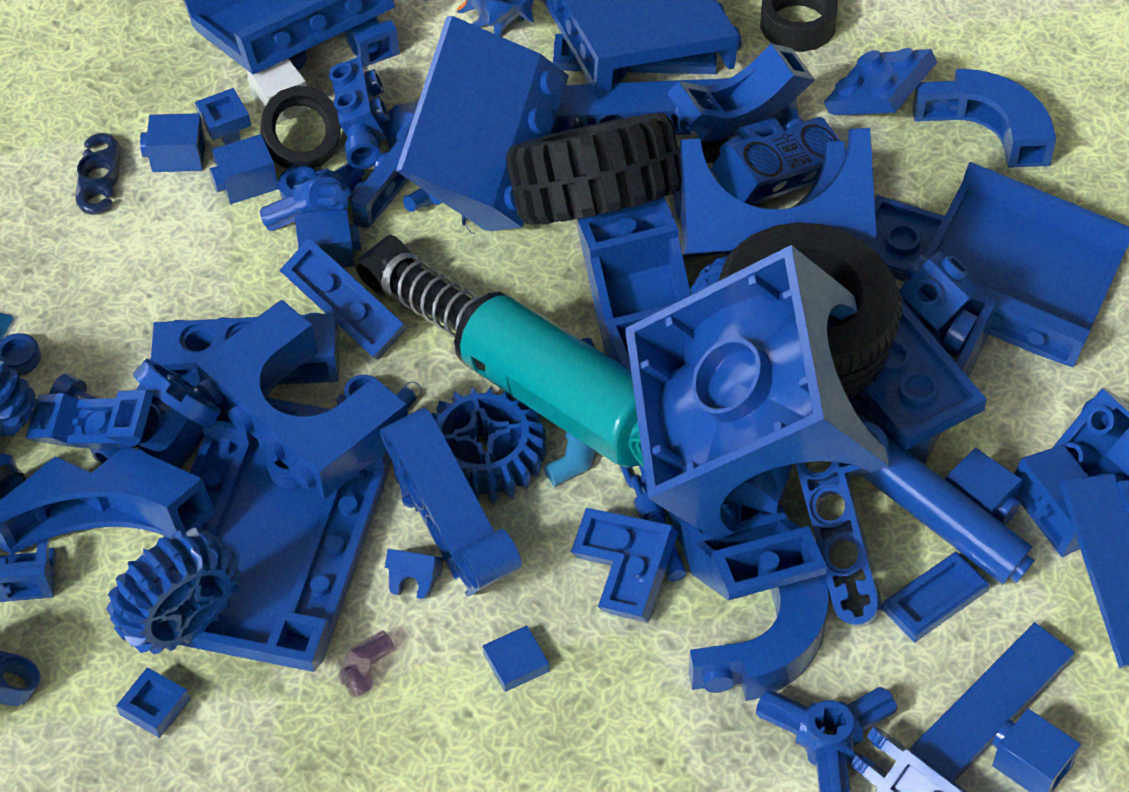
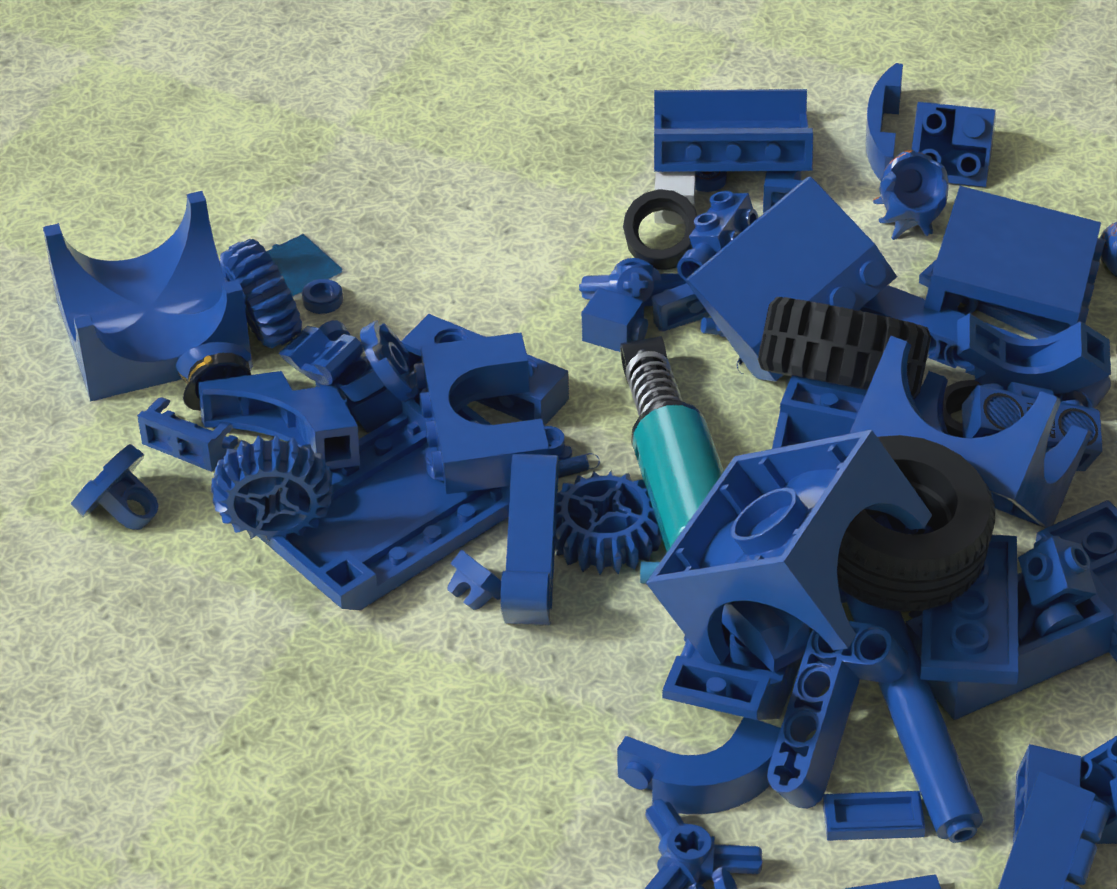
camera: 35 degrees right, 10 degrees down
(90, 187) = (474, 205): dark blue piece -> none
(153, 702) = (216, 571): blue plate -> none
(174, 142) = (560, 199): blue brick -> none
(223, 115) = (612, 195): blue tile -> none
(243, 169) = (595, 241): blue brick -> none
(340, 293) = (588, 367): blue plate -> none
(358, 661) = (386, 621): clear purple arm -> none
(516, 658) = (501, 682): blue tile -> none
(637, 557) = (648, 657): blue plate -> none
(987, 485) = (983, 755): blue brick -> none

